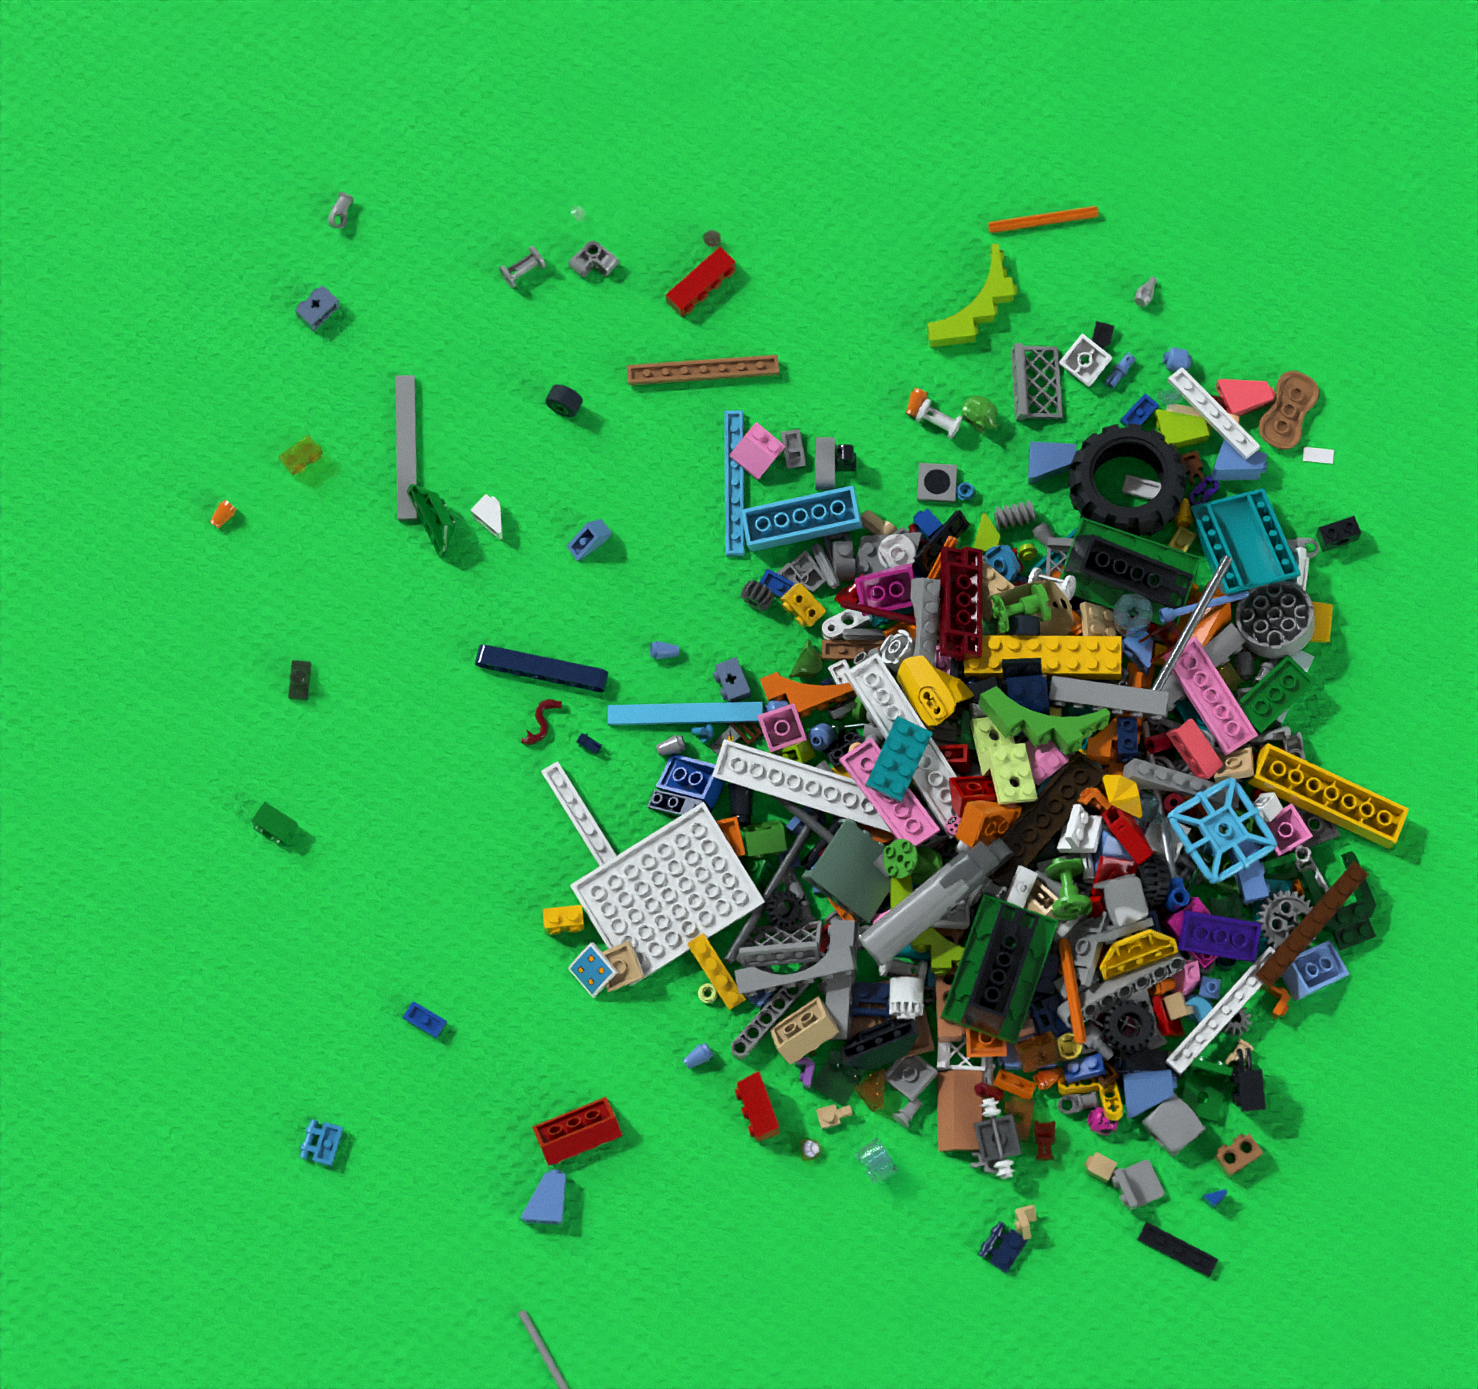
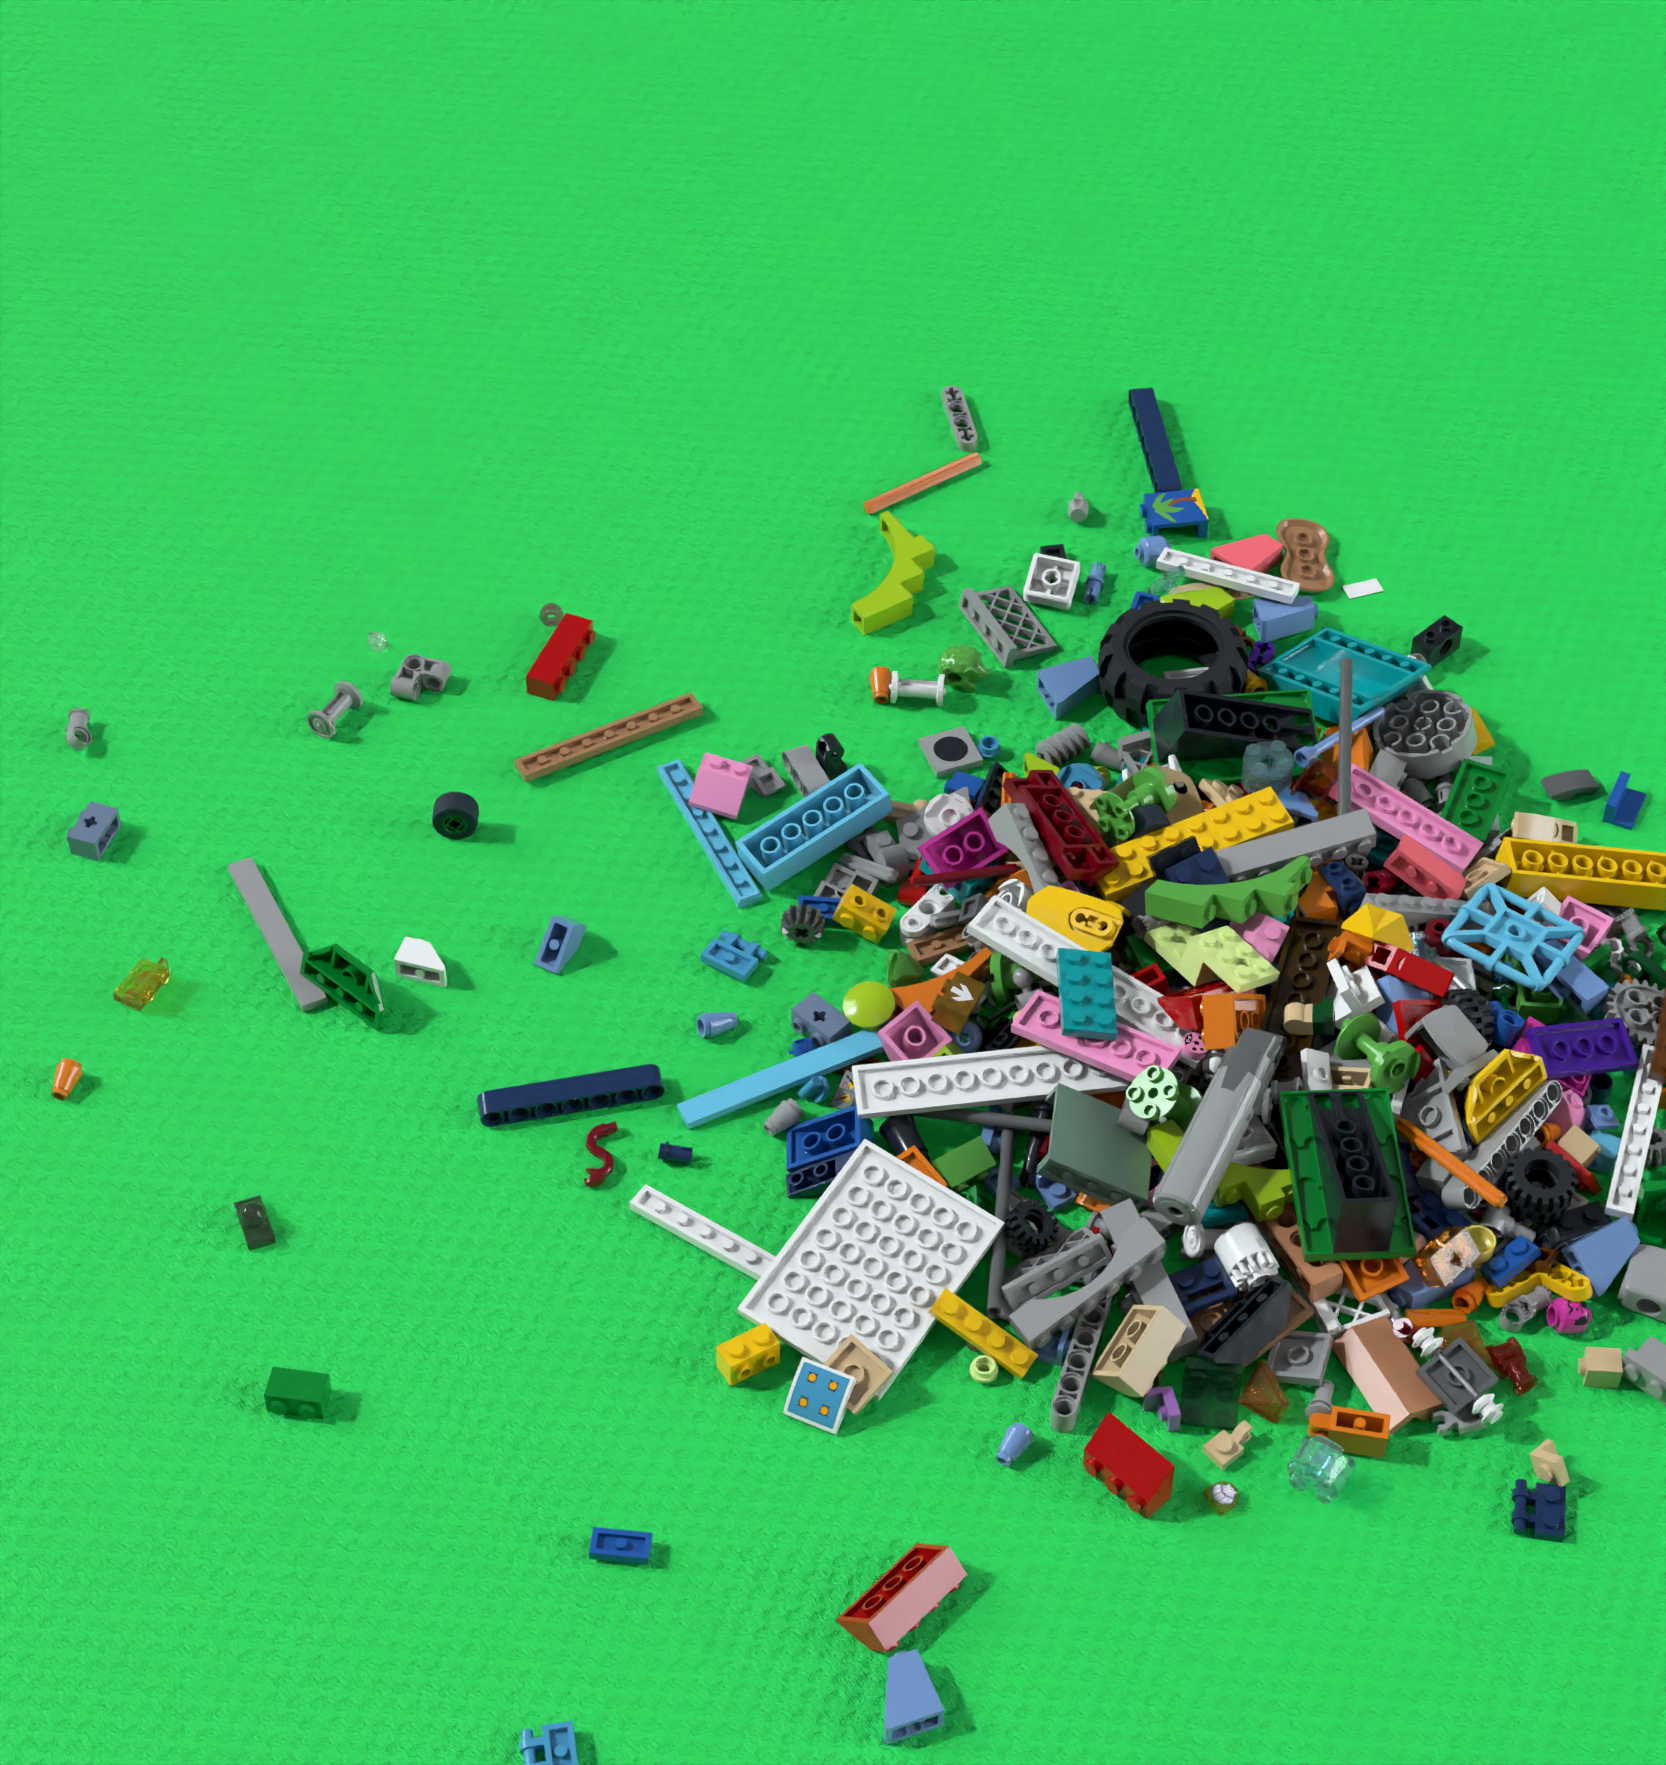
camera: 25 degrees left, 25 degrees down
(697, 601) = (731, 960): none -> dark azure plate
(711, 695) = (802, 1046): none -> blue plate
(766, 686) = (869, 1005): none -> lime dish
(821, 716) = (957, 1003): none -> pearl gold brick
(874, 638) = (971, 907): none -> dark grey plate
(912, 1143) = (1353, 1430): none -> brick
(1038, 843) = (1310, 1018): none -> leg
(1103, 165) = (959, 418): none -> light grey beam
(1212, 329) = (1174, 510): none -> blue panel
(1236, 253) = (1154, 440): none -> dark blue beam
(1307, 745) = (1543, 828): none -> tan slope
(1325, 848) = (1634, 932): none -> light grey connector
(1362, 699) = (1565, 784): none -> dark grey slope
(1391, 732) = (1623, 804): none -> blue panel

